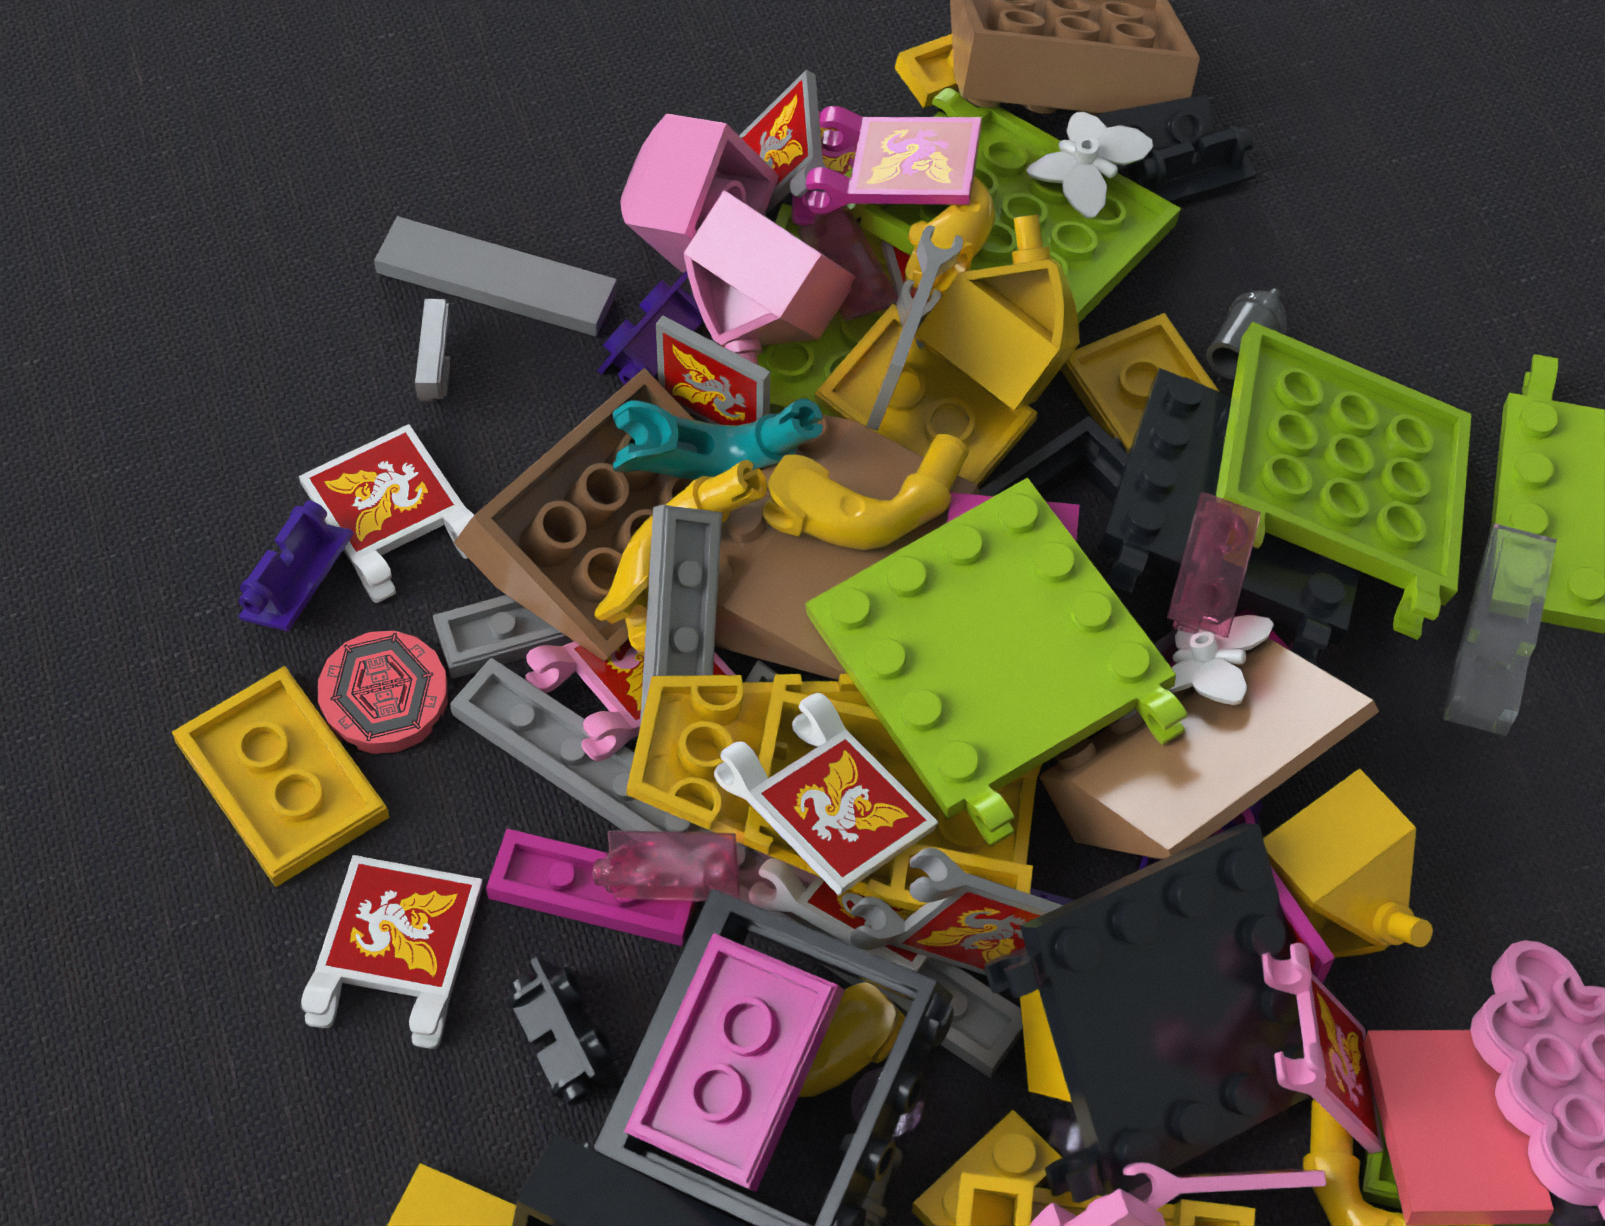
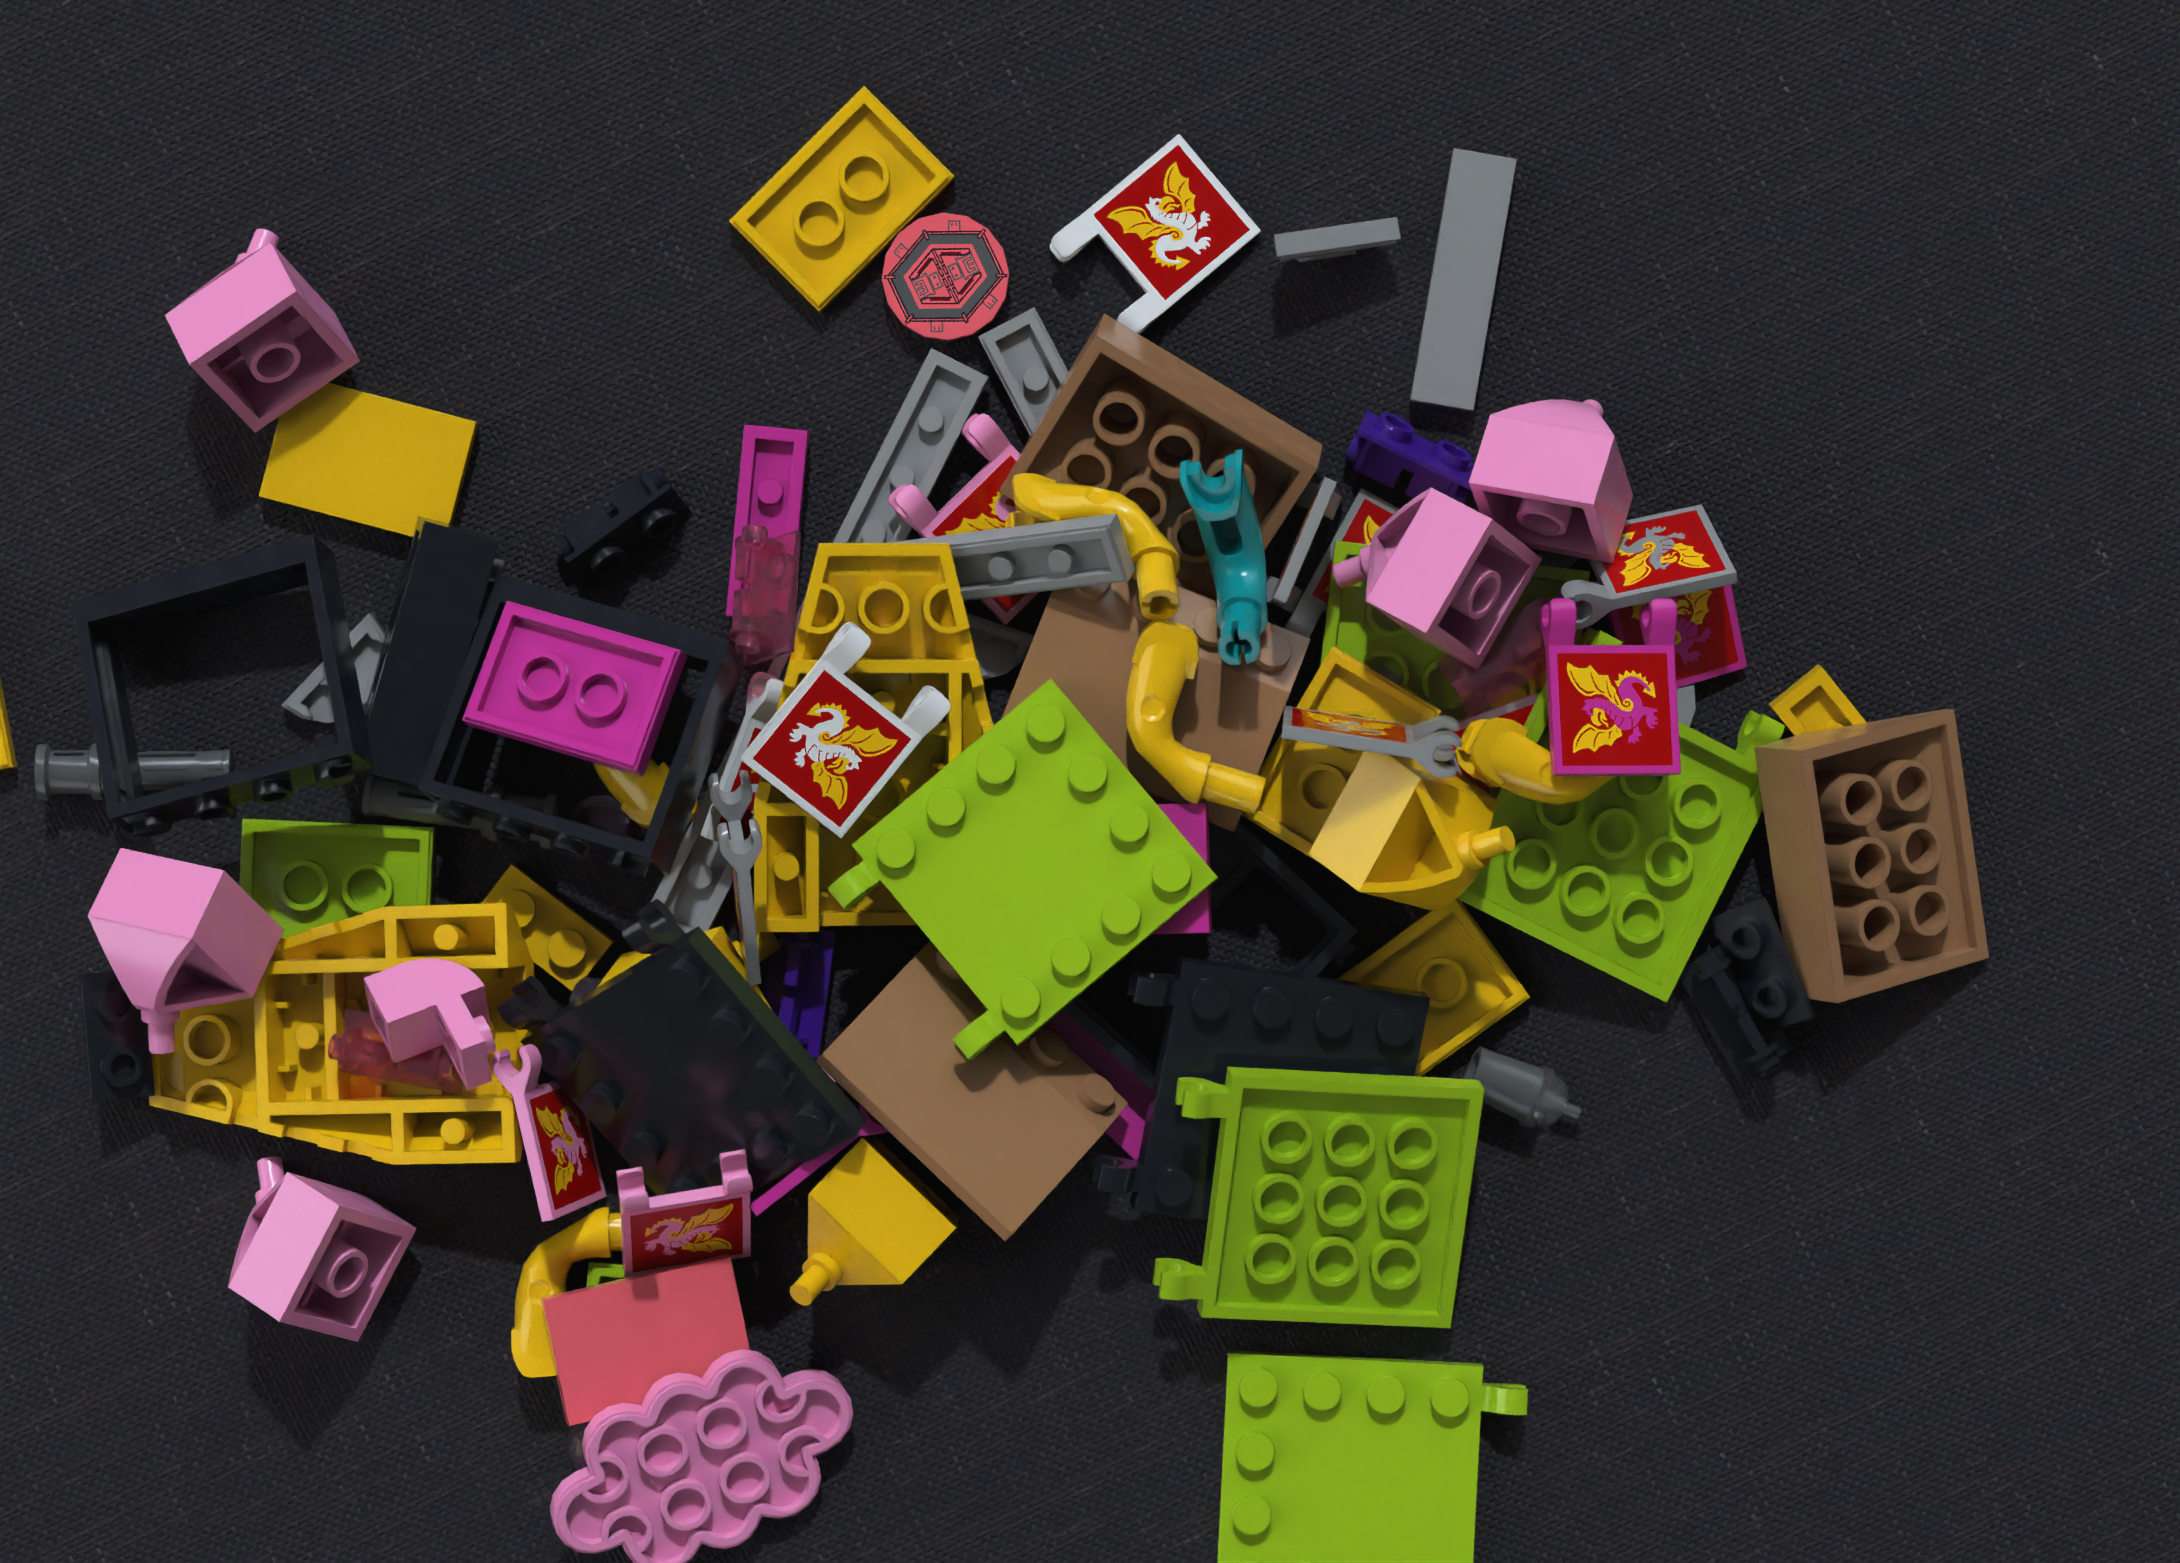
camera: 80 degrees right, 30 degrees up
(286, 582) = (1057, 161): dark purple hinge -> none
(396, 934) = (696, 350): flag -> none
(1085, 156) = (1696, 890): white piece -> none
(1207, 659) = (1071, 1074): white piece -> none
(1213, 566) = (1150, 1071): clear pink hinge -> none
(1500, 630) = (1186, 1366): clear slope -> none

